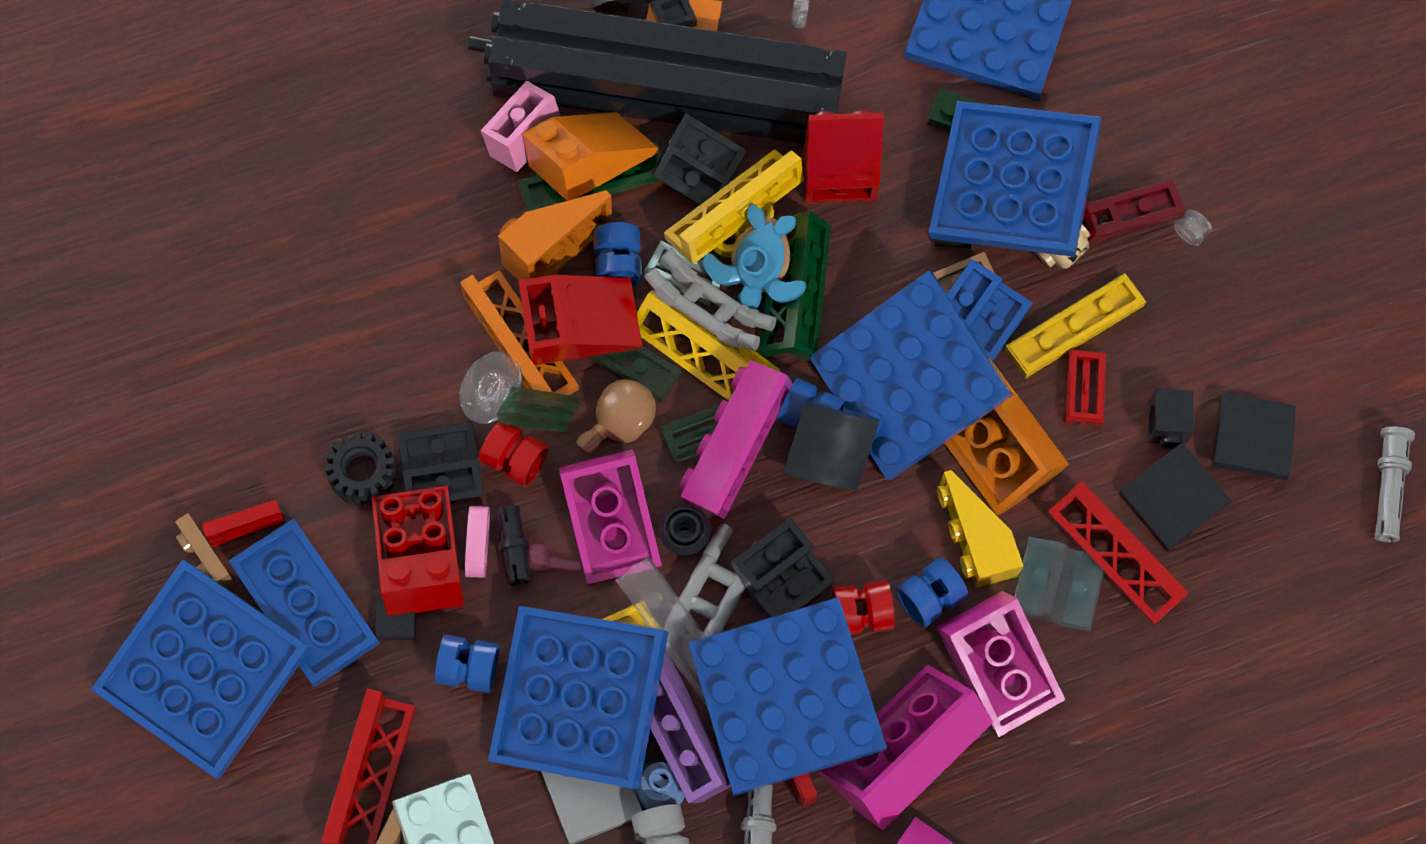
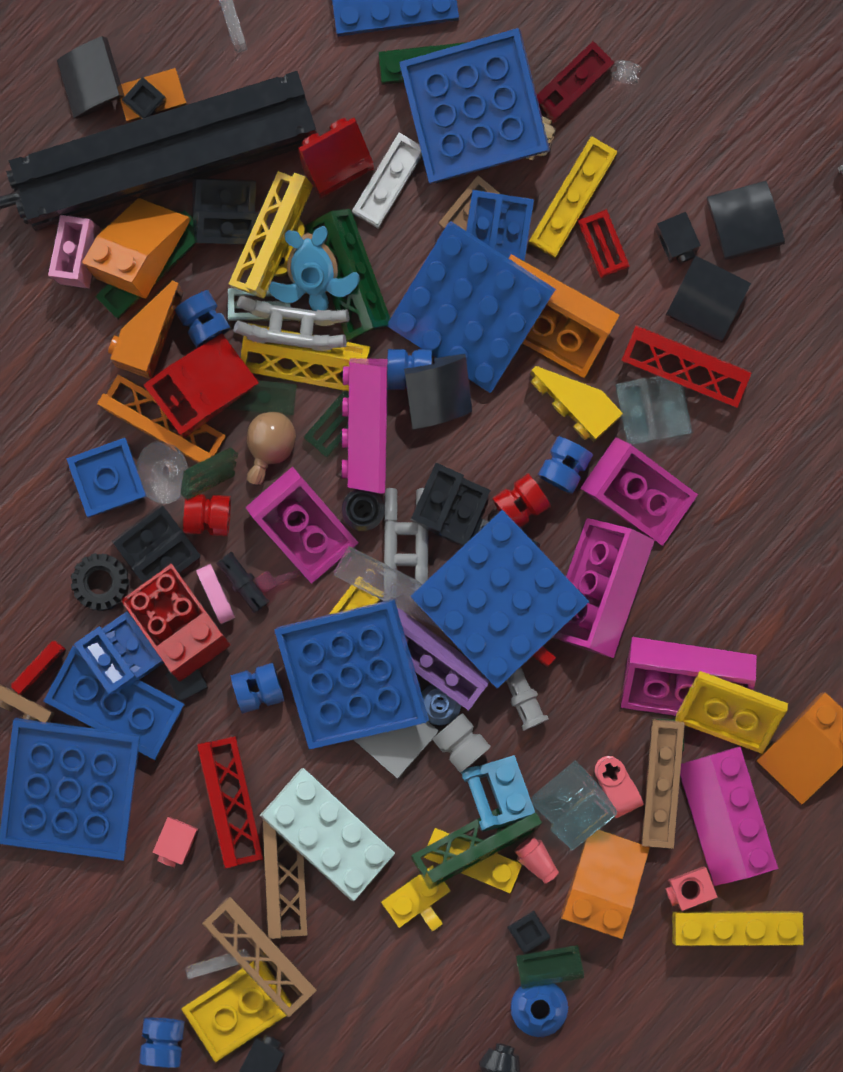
camera: 25 degrees left, 15 degrees up
(283, 787) = (175, 842): none -> coral brick
(337, 551) = (119, 653): none -> blue slope
(428, 366) = (106, 477): none -> blue plate
(885, 217) = (388, 180): none -> white tile

